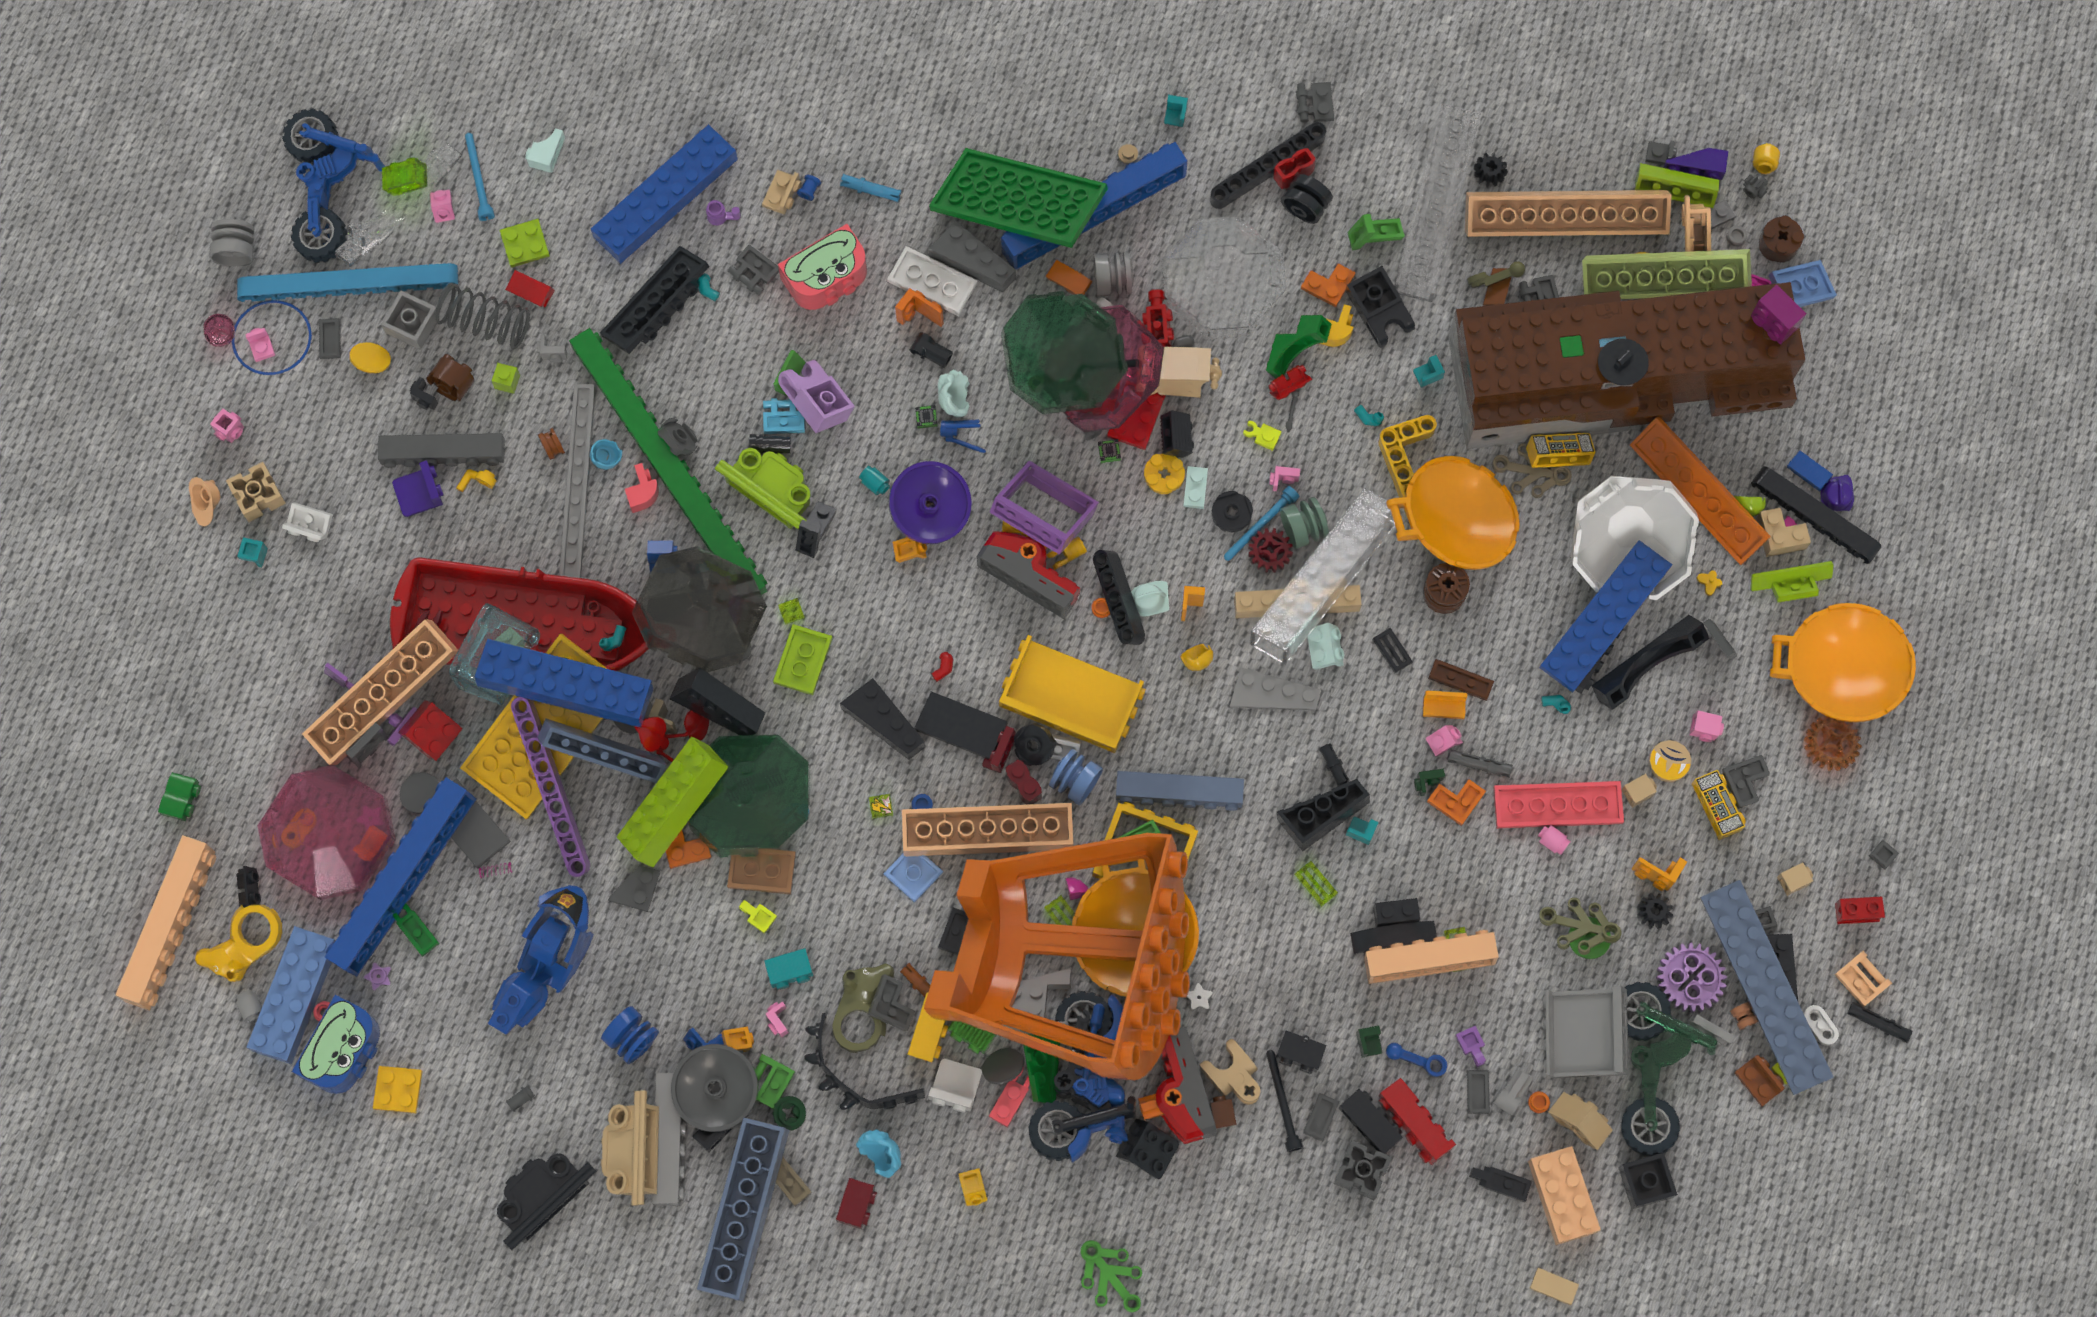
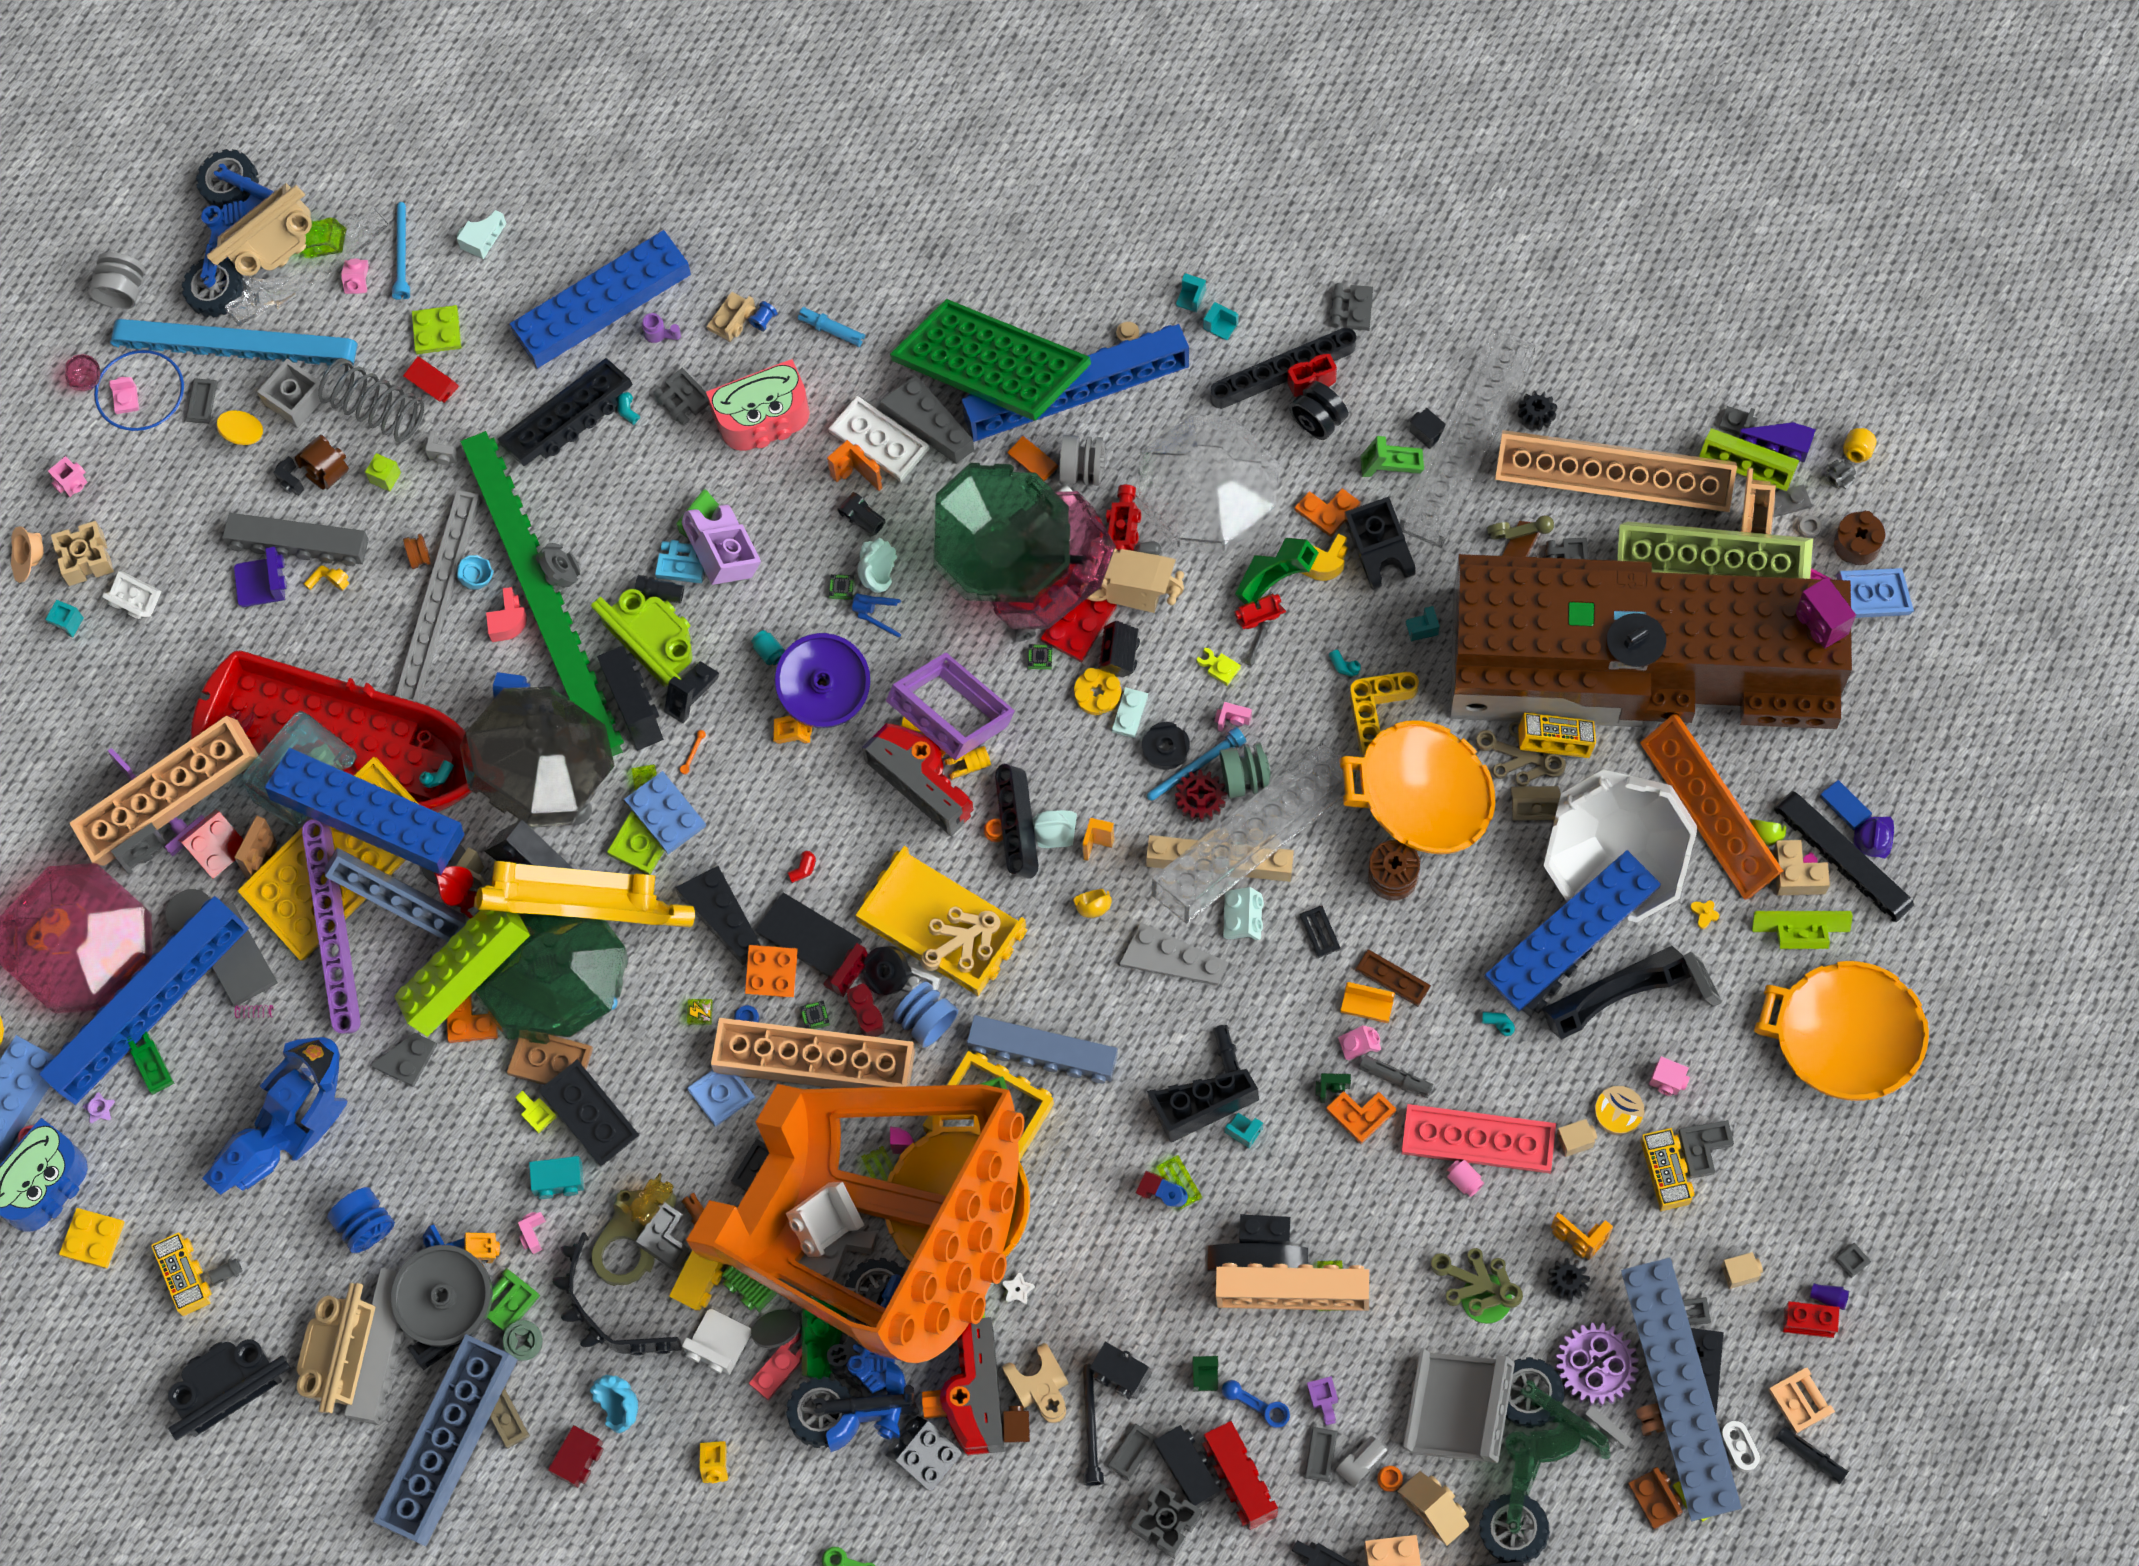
camera: 15 degrees right, 5 degrees down
(359, 180) = (266, 233): none -> tan brick
(471, 726) = (256, 847): none -> medium nougat plate
(484, 1106) = (182, 1273): none -> brick
(762, 722) = (579, 894): none -> yellow panel
(765, 542) = (631, 697): none -> black wedge
(805, 909) = (589, 1113): none -> black plate
(816, 639) = (665, 812): none -> medium blue plate
(831, 565) = (684, 769): none -> orange hinge
(872, 983) = (653, 1192): none -> clear yellow hinge
(936, 761) = (771, 971): none -> orange hinge
(980, 793) = (815, 1015): none -> tile
(1027, 966) = (824, 1218): none -> white panel
(1094, 705) = (962, 937): none -> tan plant
(1206, 132) = (1220, 321): none -> teal panel
(1312, 894) = (1170, 1192): none -> leg
(1400, 199) = (1426, 427): none -> black brick
(1552, 510) = (1535, 802): none -> dark tan panel
(1837, 750) = (1796, 1128): clear orange gear -> none
(1871, 887) = (1830, 1295): none -> dark purple cone

